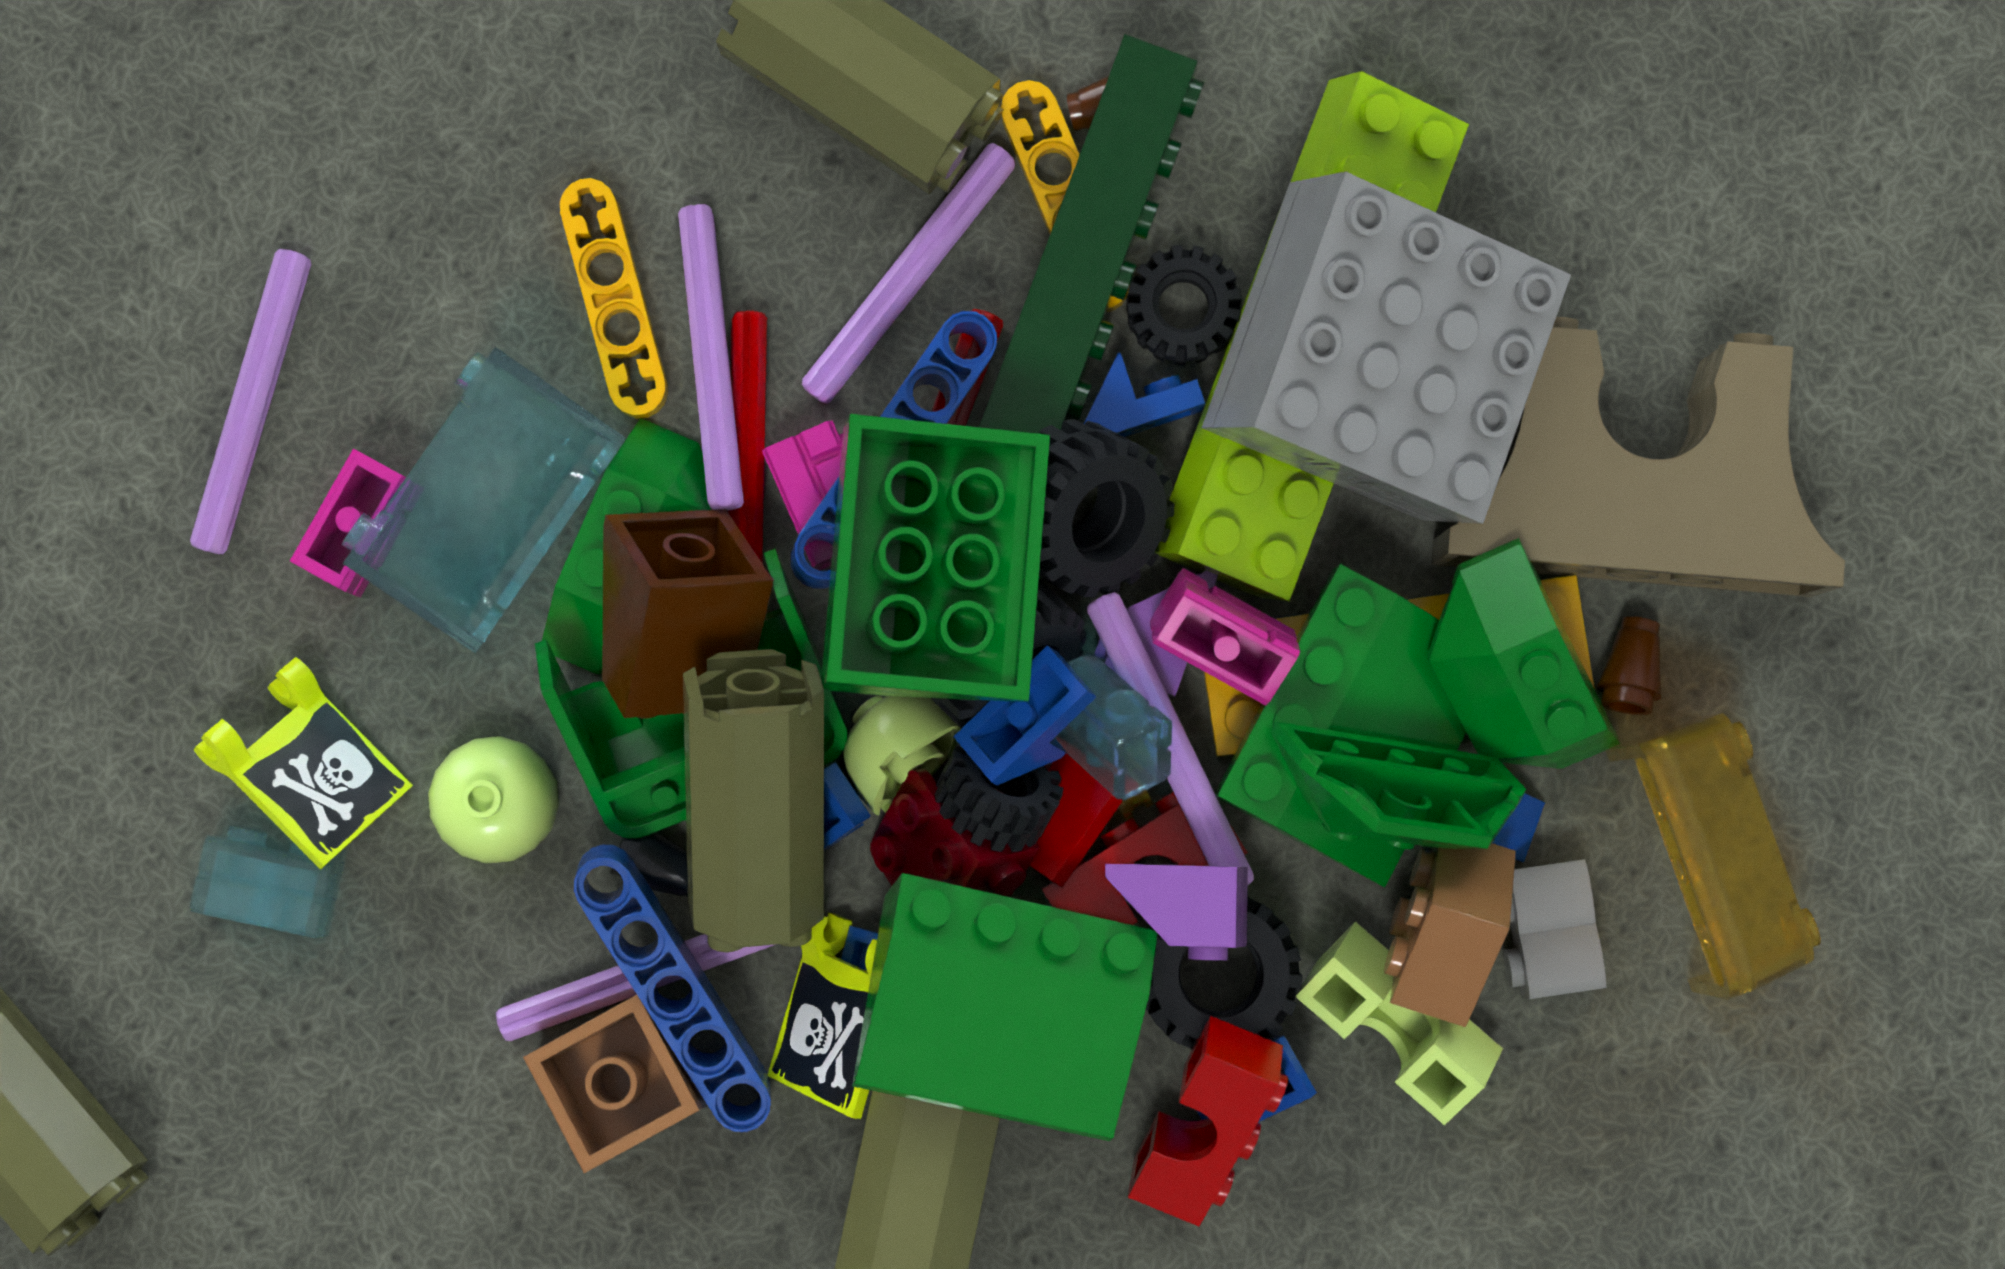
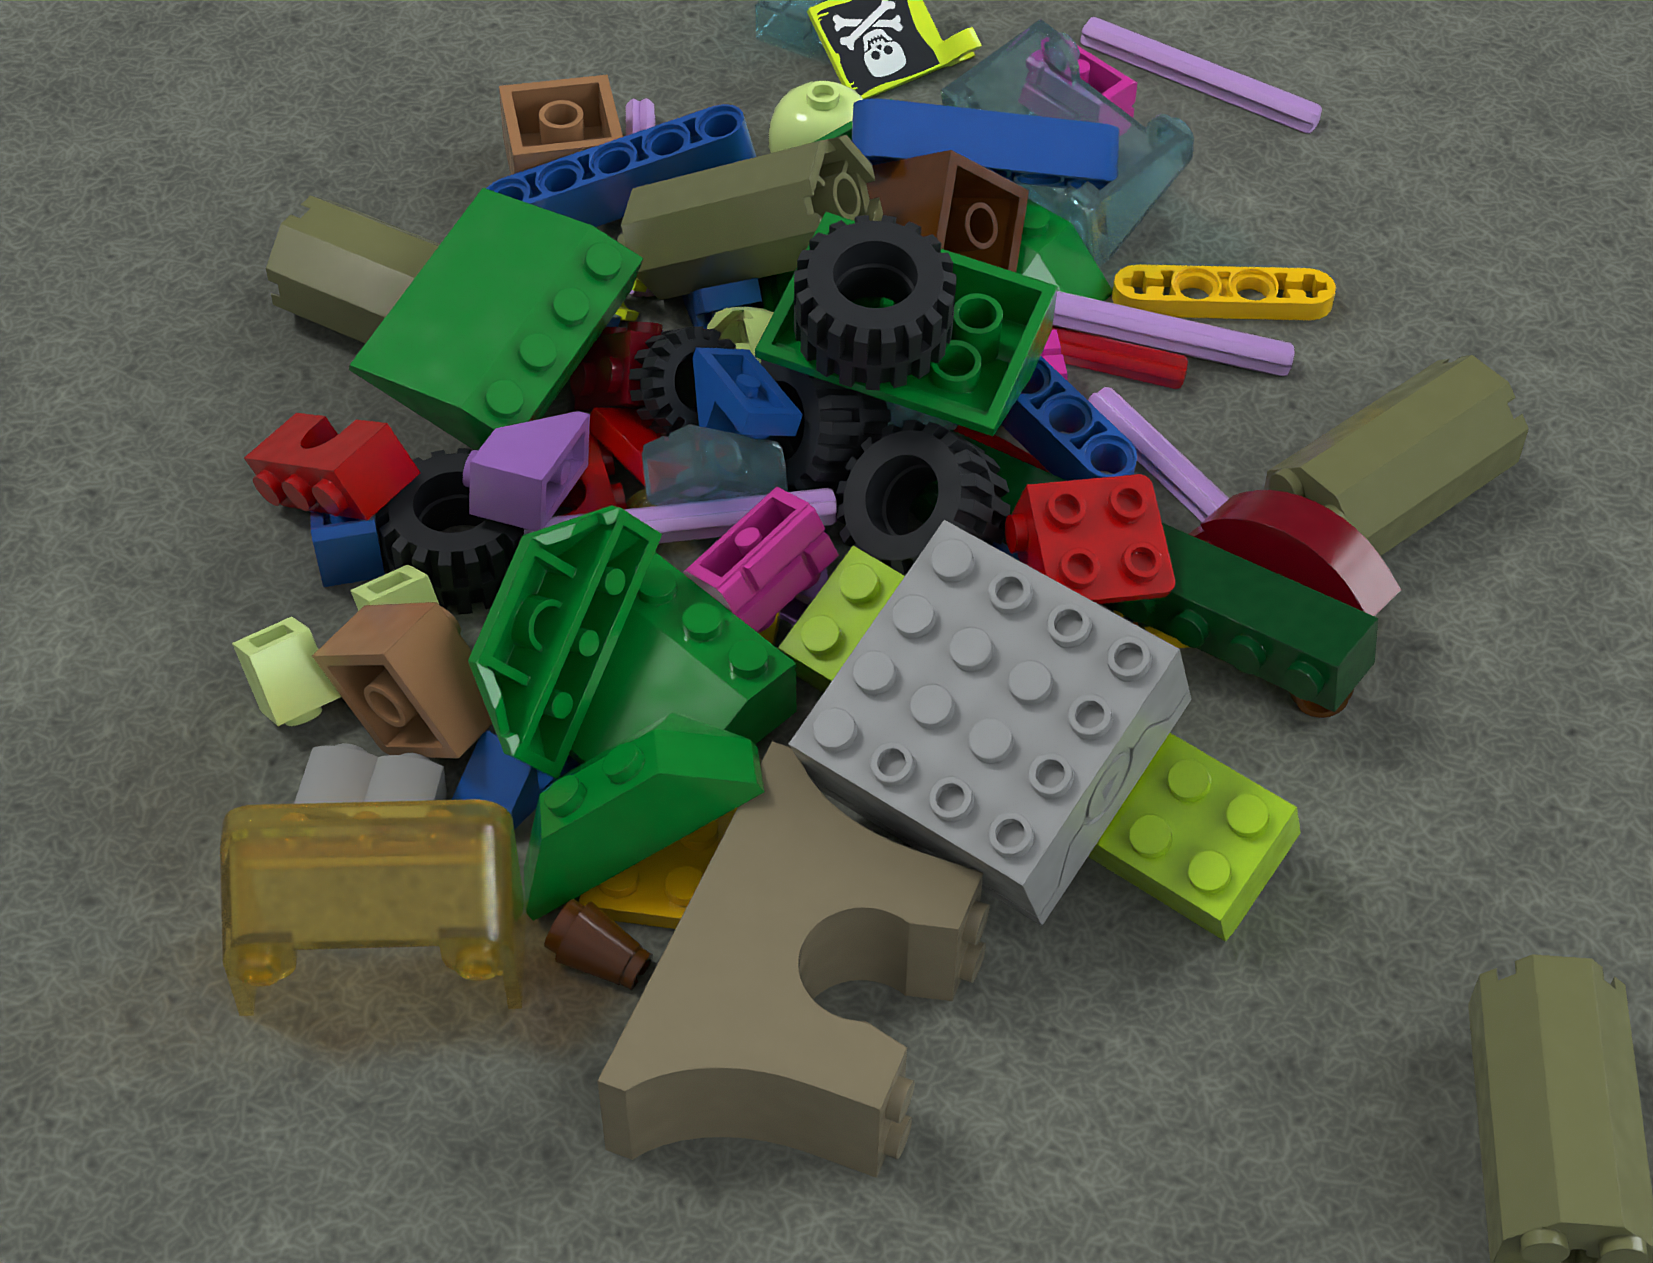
camera: 100 degrees right, 35 degrees down
(558, 578) = (1010, 144): none -> blue beam
(1012, 541) = (874, 262): none -> black tyre
(1021, 143) = (1302, 544): none -> dark red arch
(1114, 324) = (1094, 537): none -> red bracket

